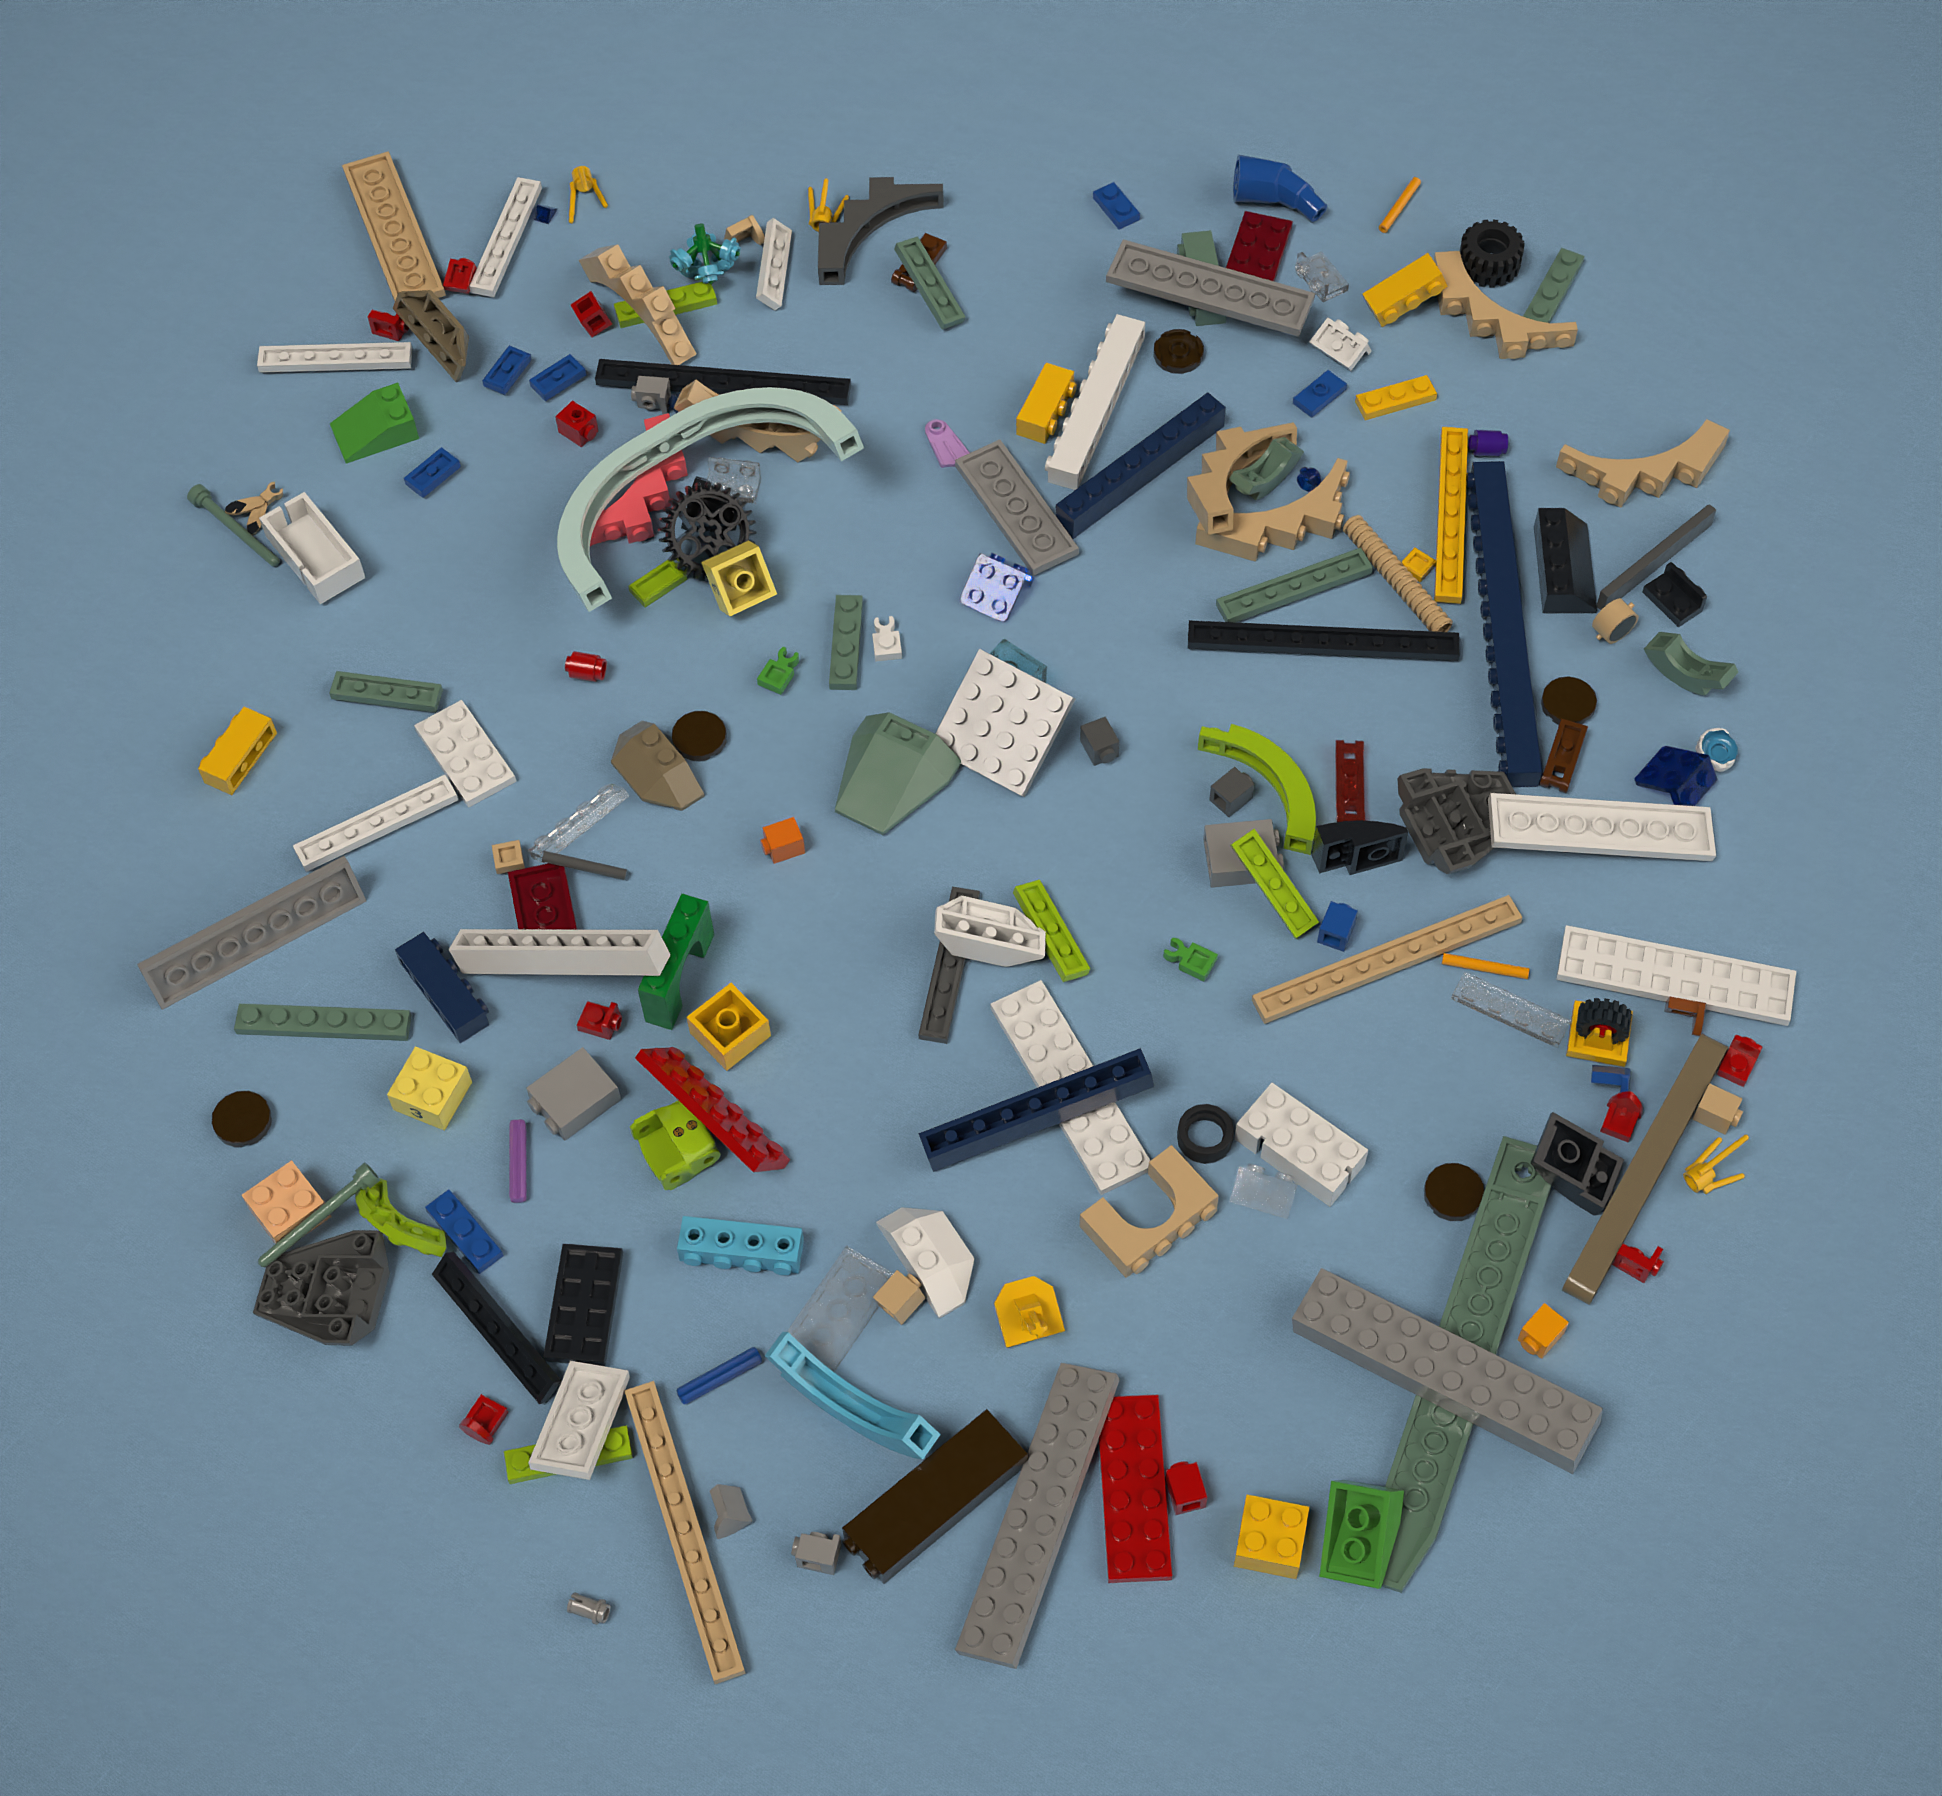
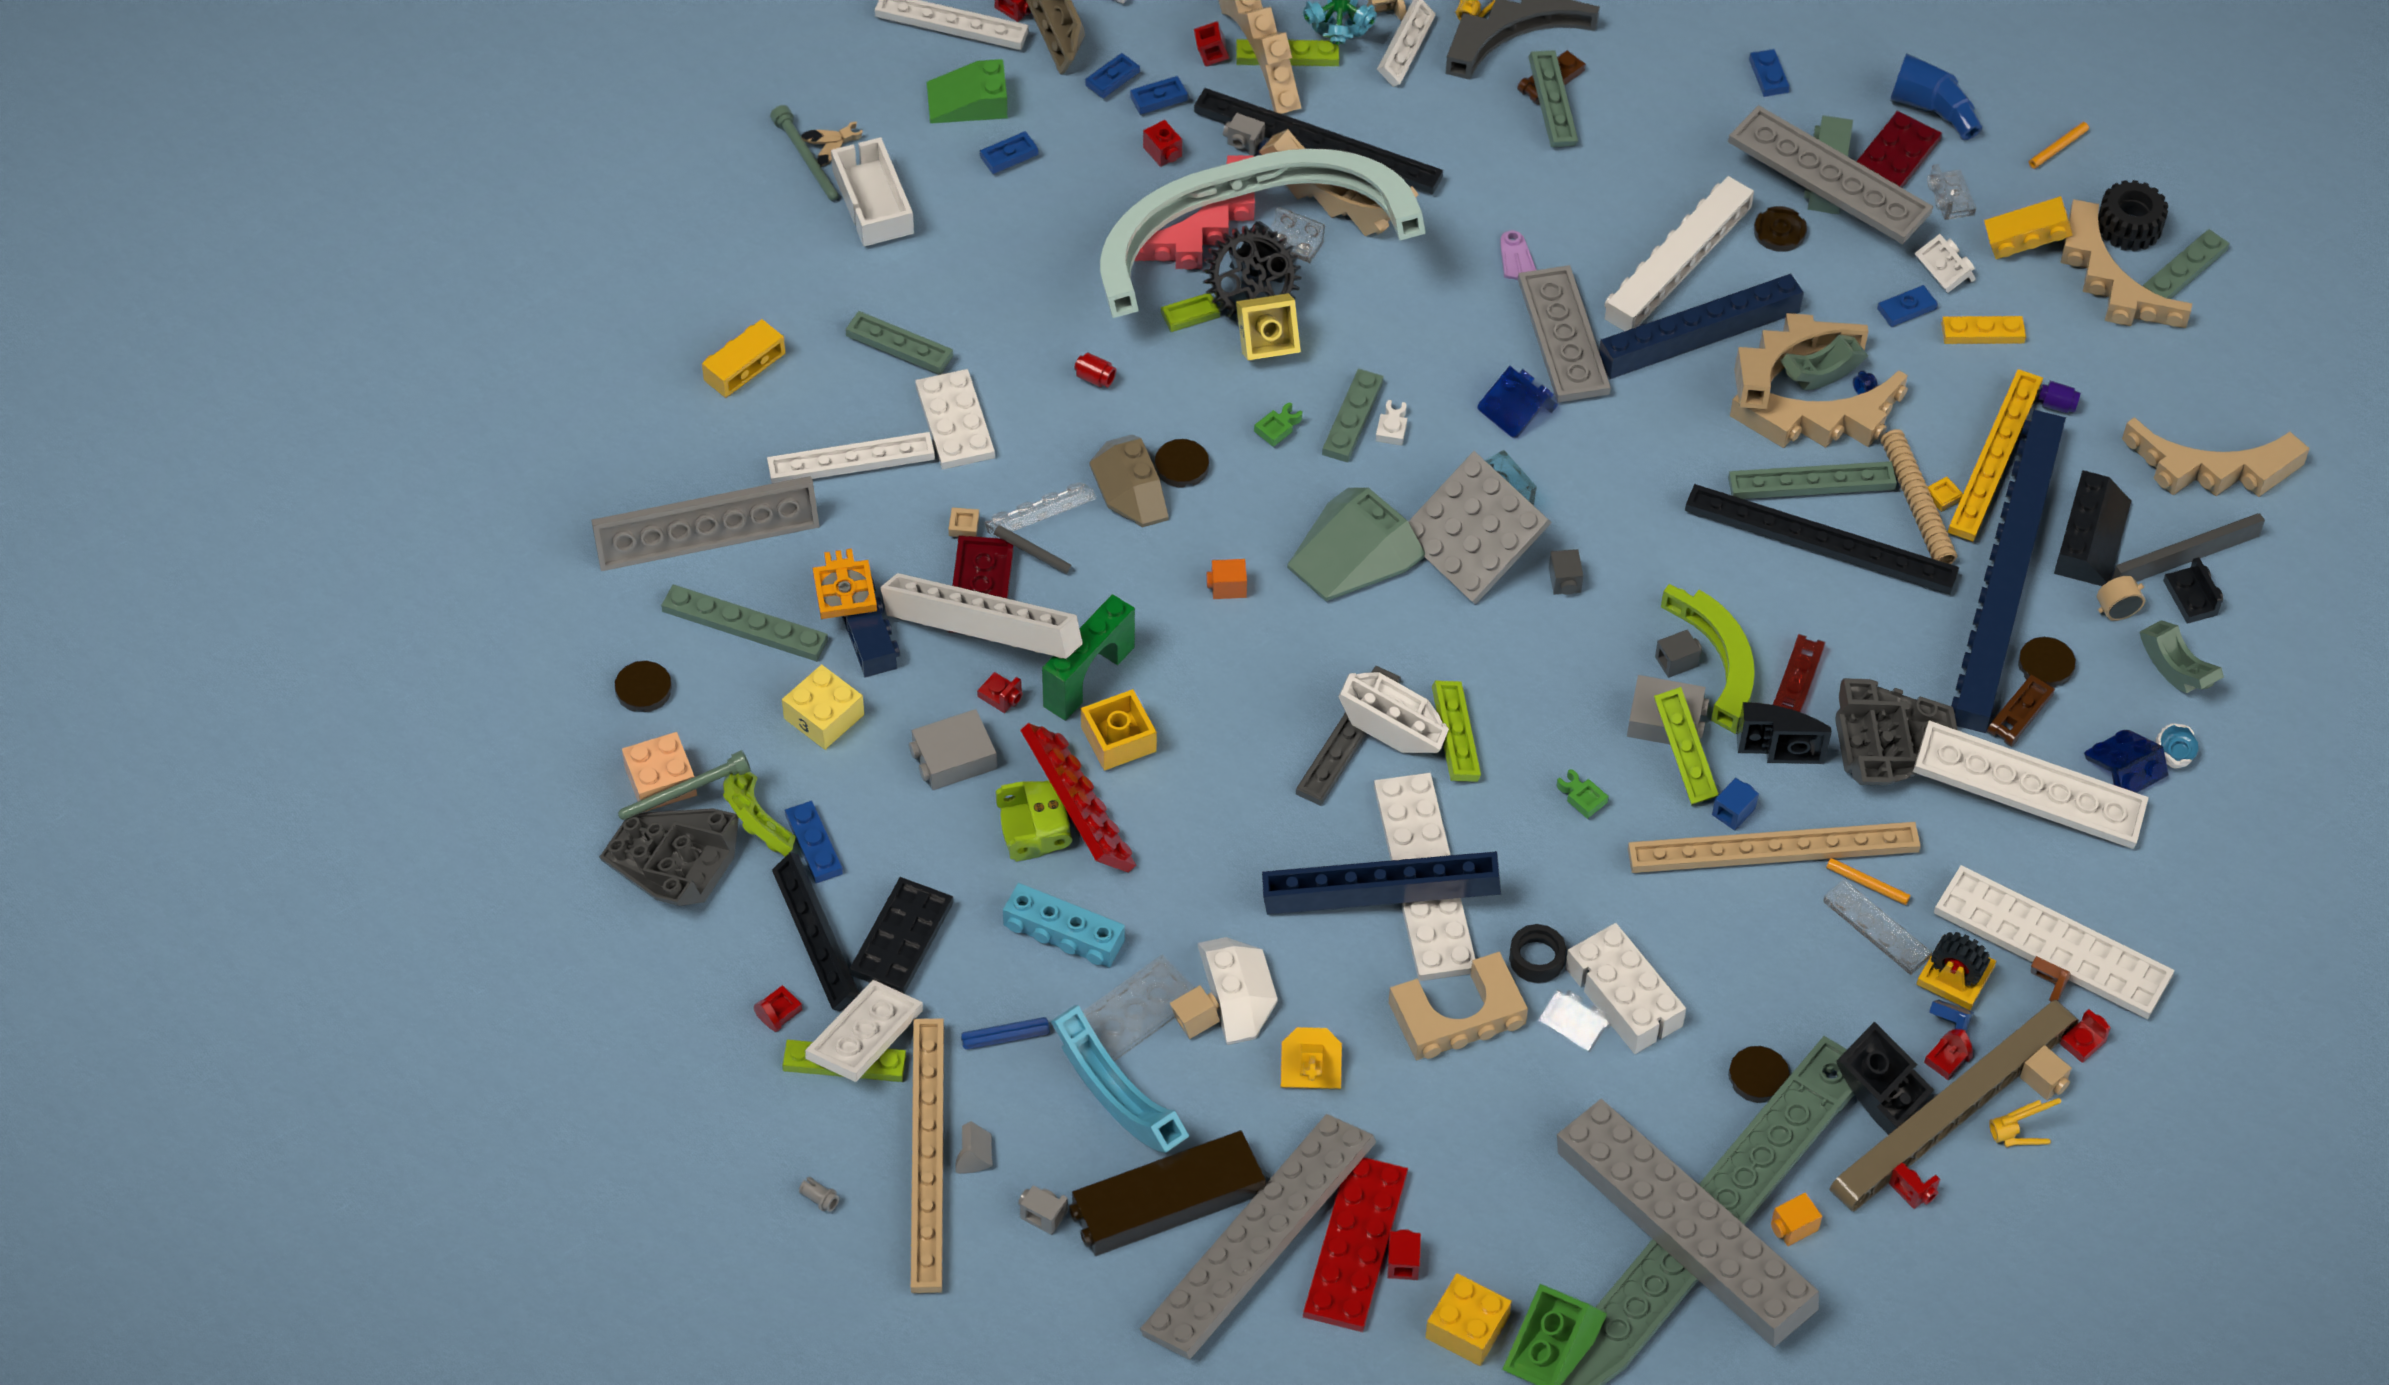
camera: 15 degrees right, 5 degrees down
(412, 959) = (844, 586): none -> light orange piece
(517, 1161) = (883, 794): medium lavender axle -> none
(1046, 403) = (1628, 243): yellow brick -> none

